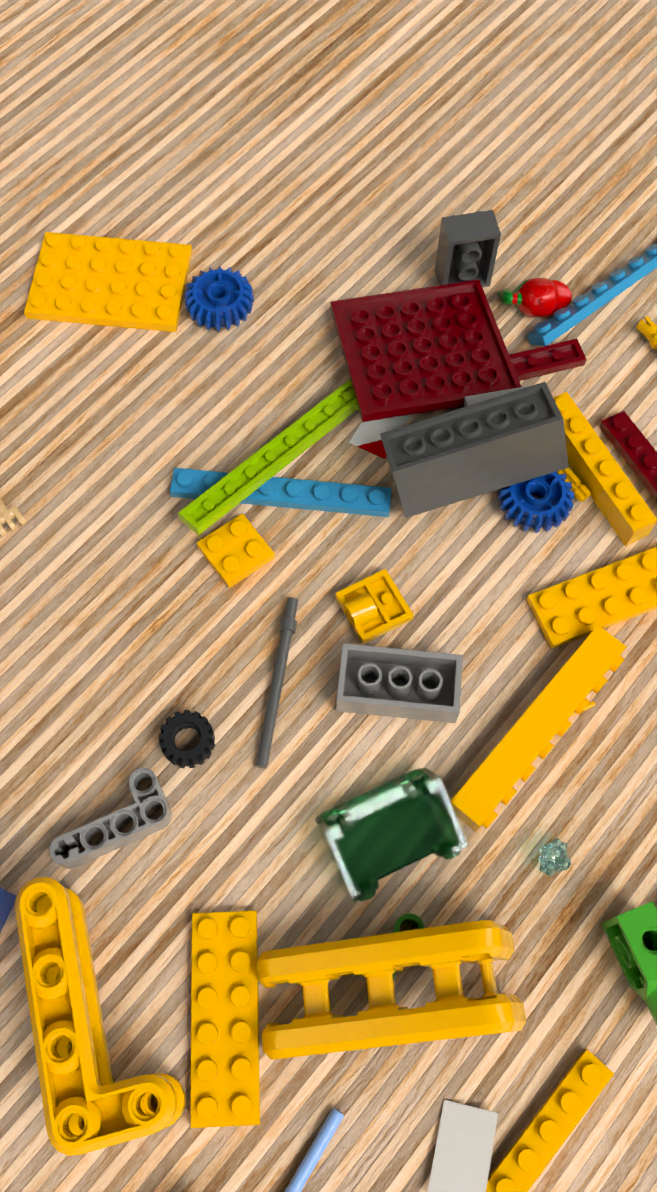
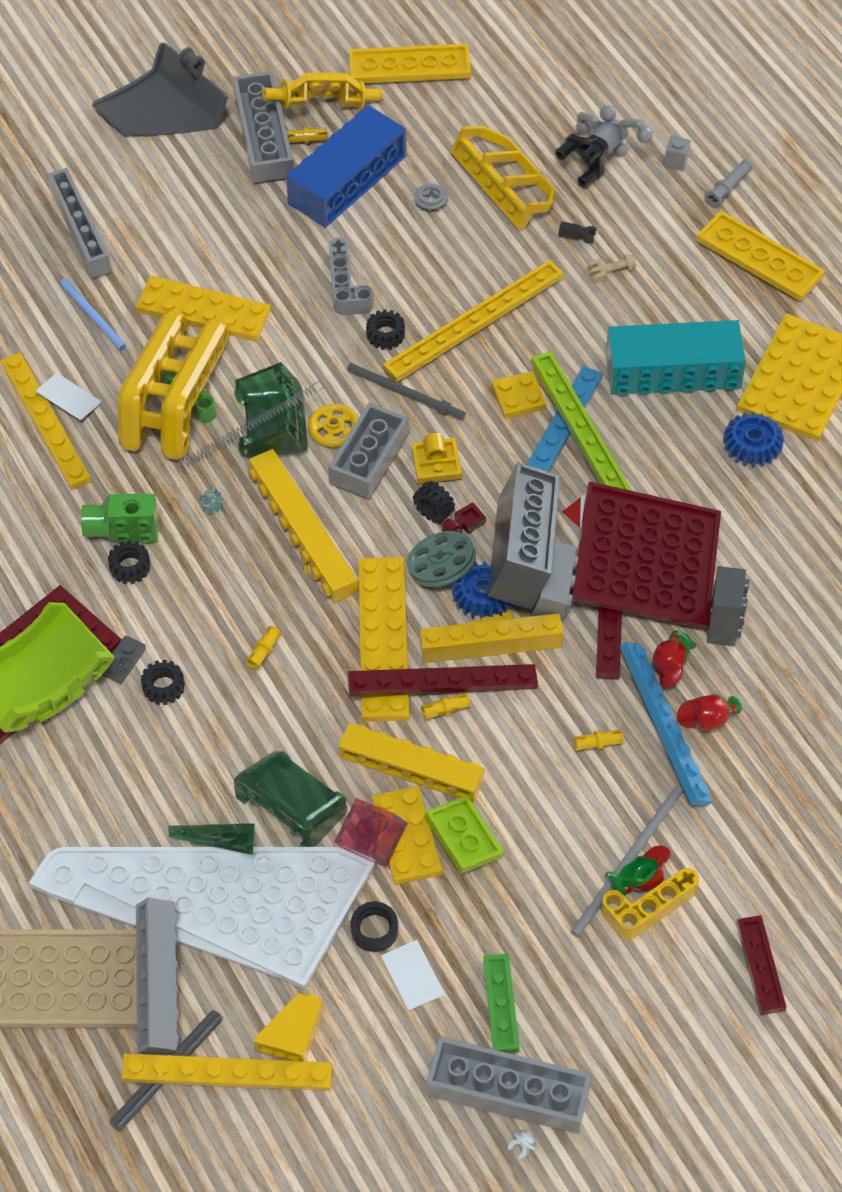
camera: 110 degrees right, 10 degrees down
(71, 1050) = (230, 223): yellow beam -> none
(138, 390) = (675, 357): none -> teal brick
(140, 637) = (472, 321): none -> yellow plate
(374, 774) = (327, 411): none -> yellow plate
(381, 813) = (249, 428): none -> light grey piece
(444, 543) = (468, 518): none -> dark red plate
(446, 580) = (433, 502): none -> black tyre
(526, 536) = (441, 558): none -> sand green wedge
(581, 244) = (707, 712): none -> red hair

